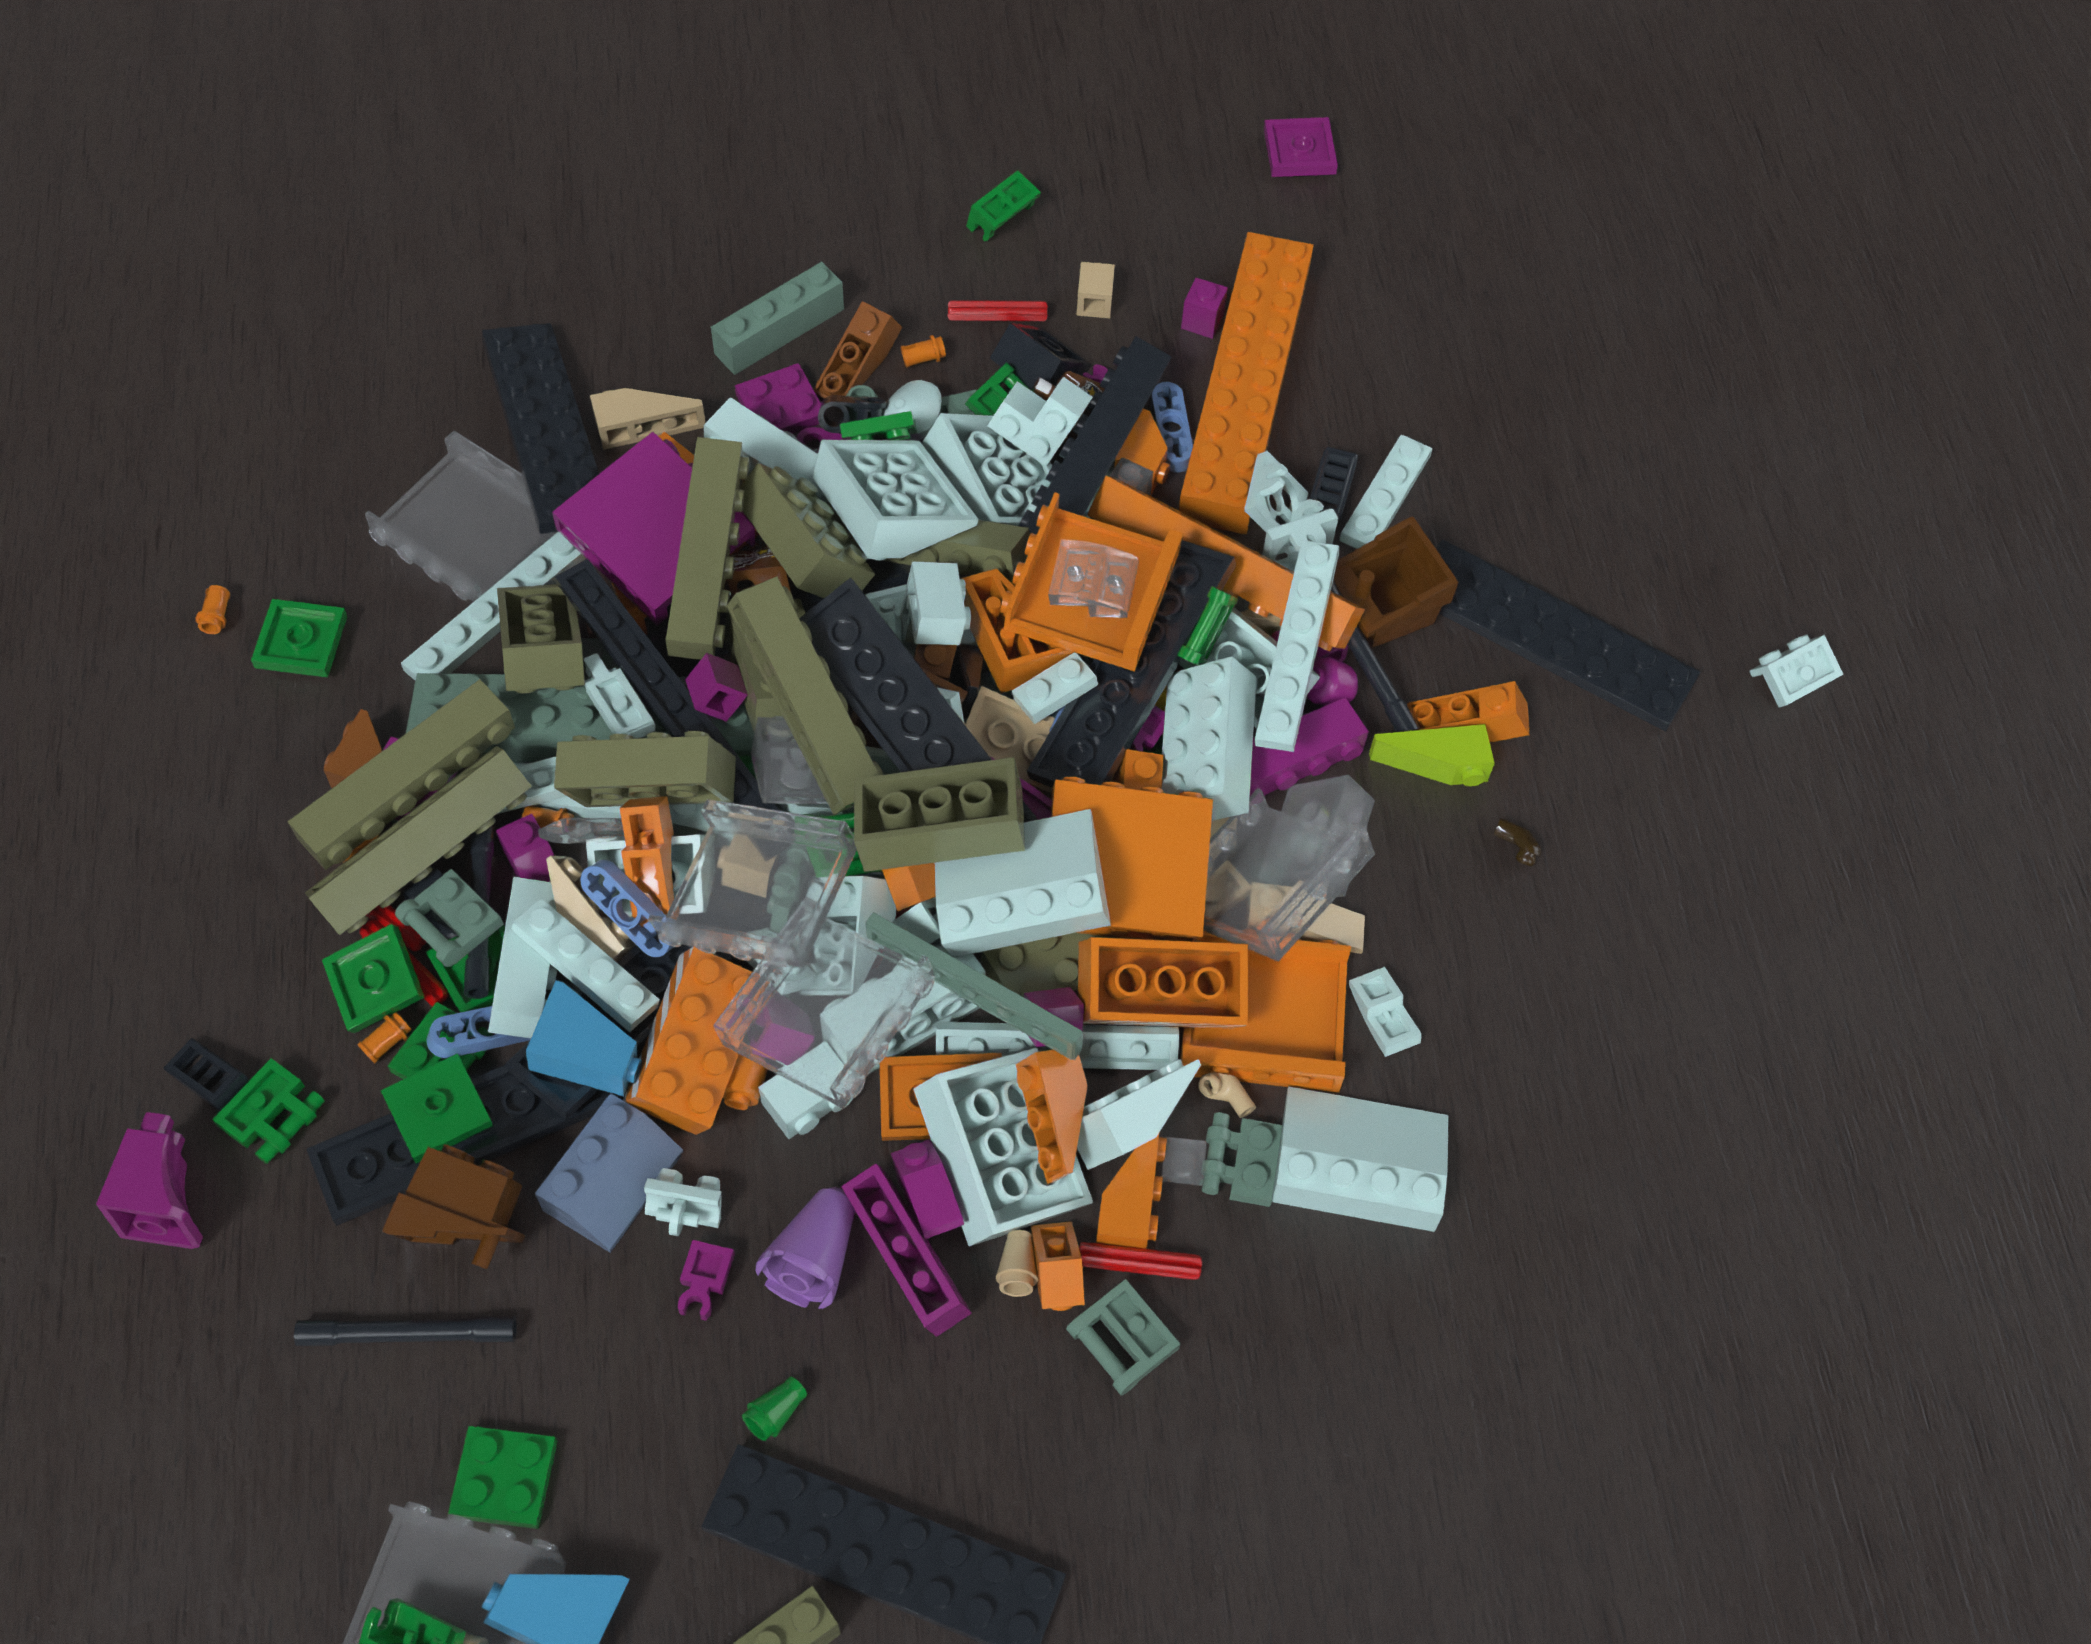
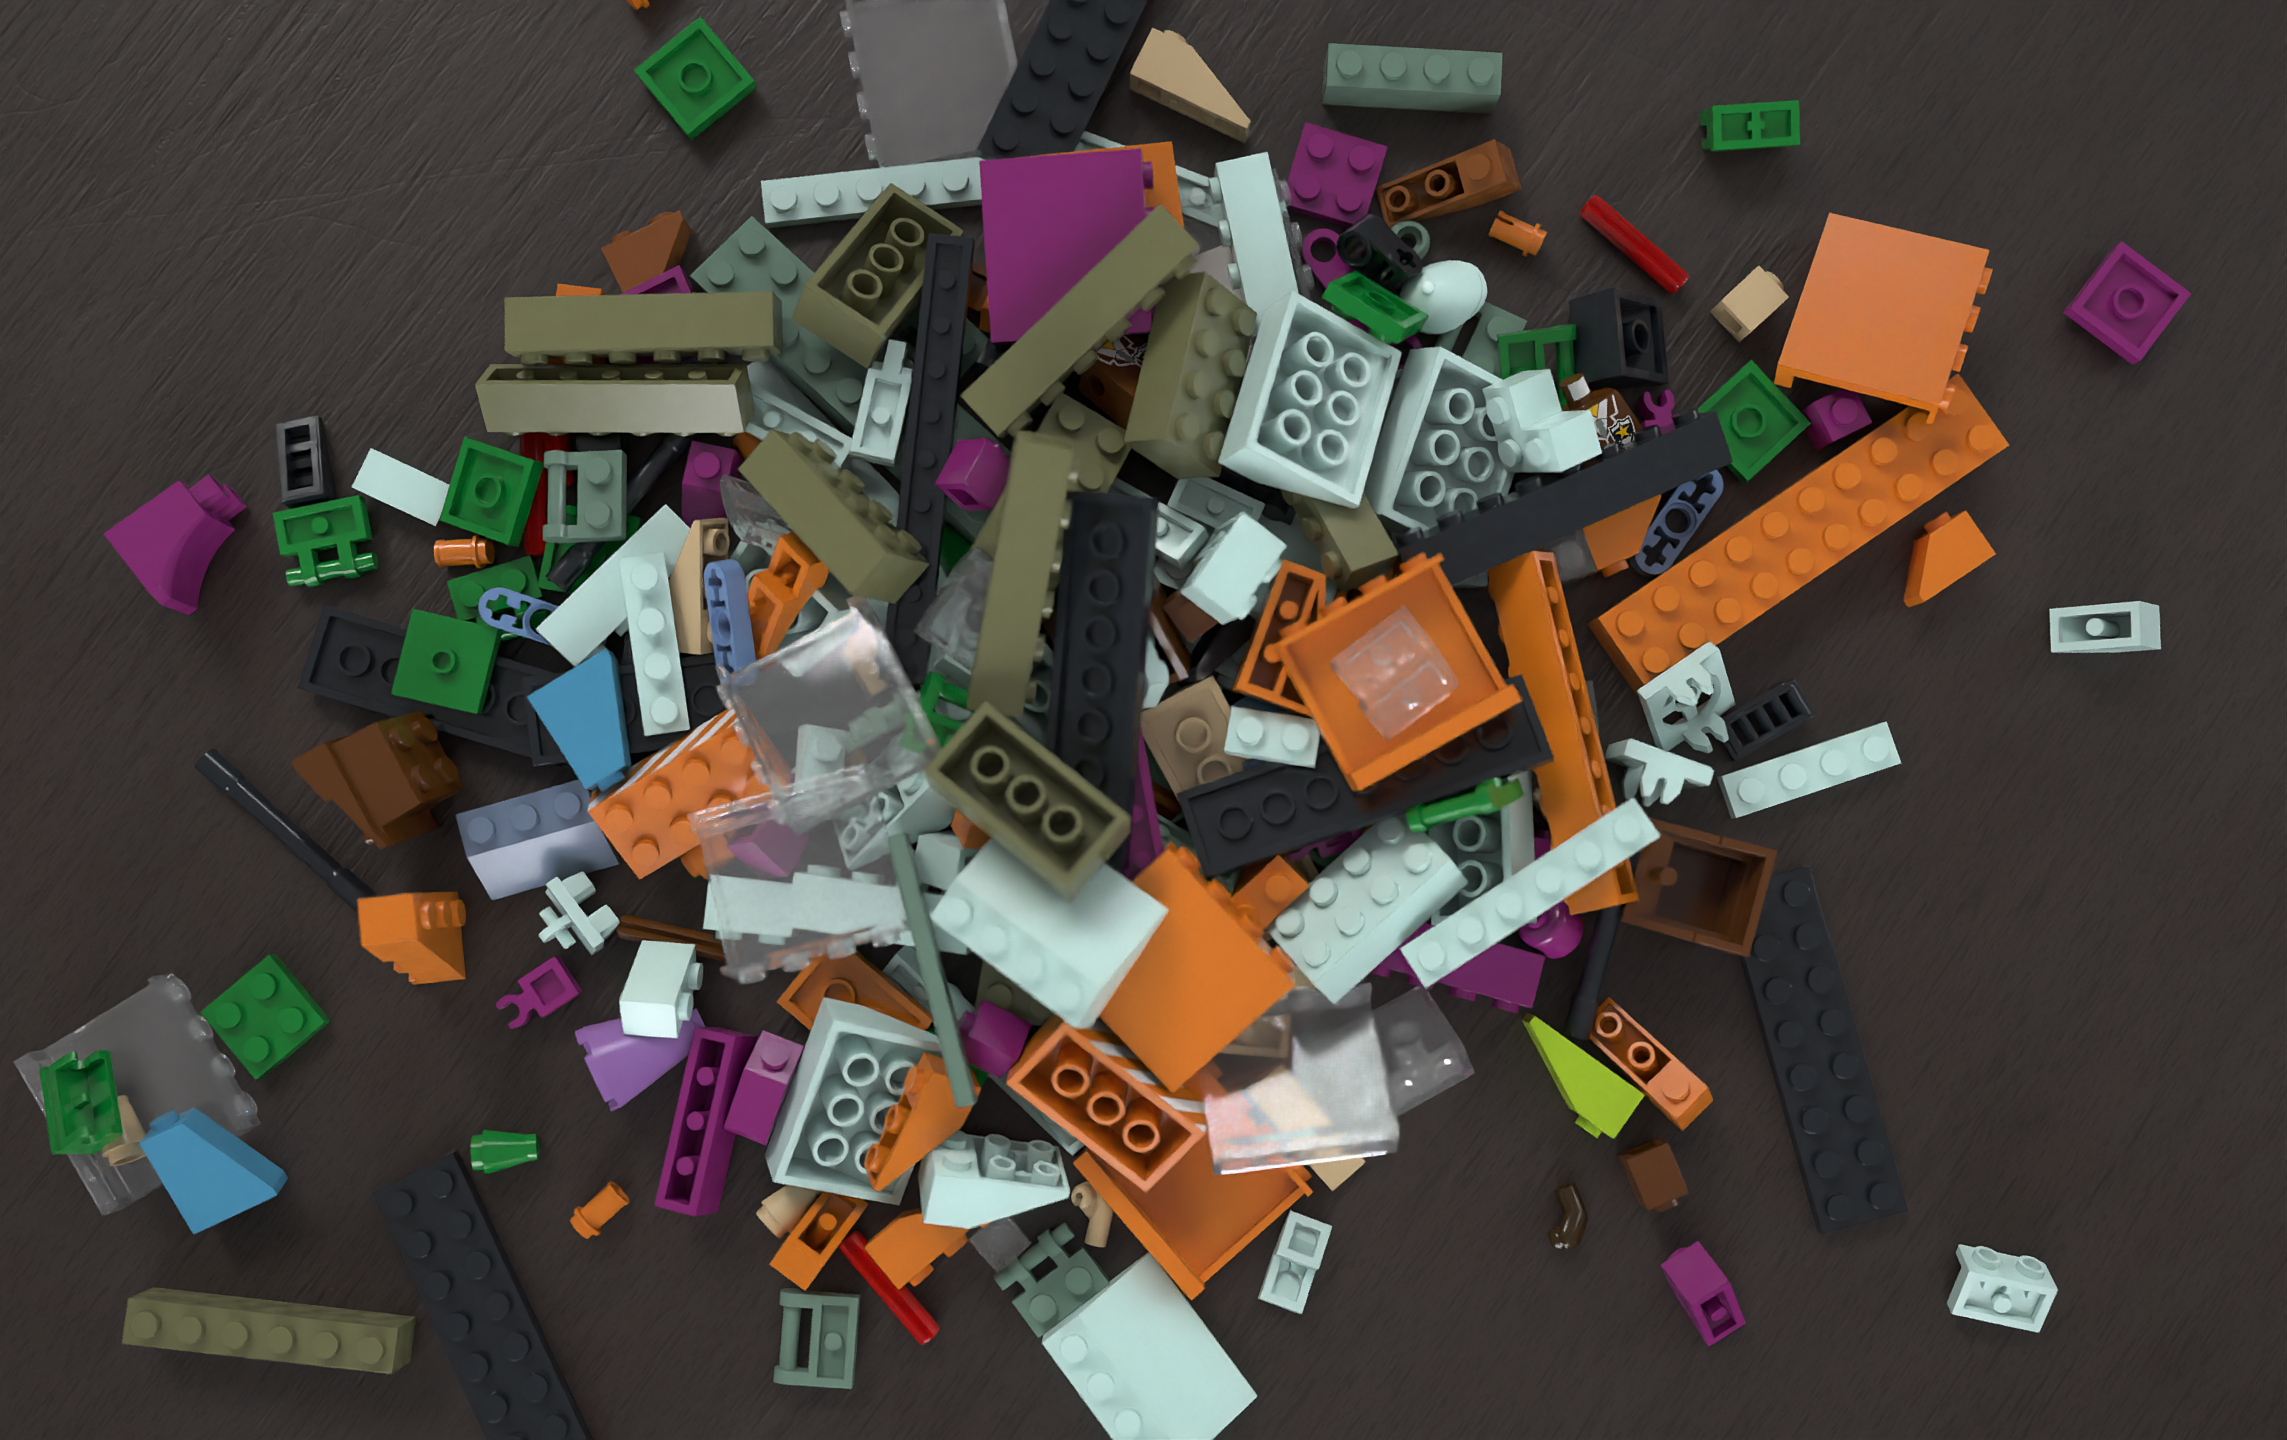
camera: 45 degrees right, 25 degrees up
(299, 1030) = (402, 486): none -> light aqua slope
(577, 1293) = (416, 933): none -> orange wedge
(775, 1159) = (640, 929): none -> reddish brown axle
(793, 1185) = (660, 989): none -> light aqua brick
(884, 1389) = (599, 1210): none -> orange pin
(1167, 334) = (1754, 420): none -> green plate
(1175, 230) = (1885, 313): none -> orange panel
(1339, 329) = (1944, 555): none -> orange slope
(1464, 299) = (2105, 628): none -> light aqua slope
(1540, 772) = (1653, 1175): none -> reddish brown brick
(1641, 811) = (1703, 1292): none -> magenta slope

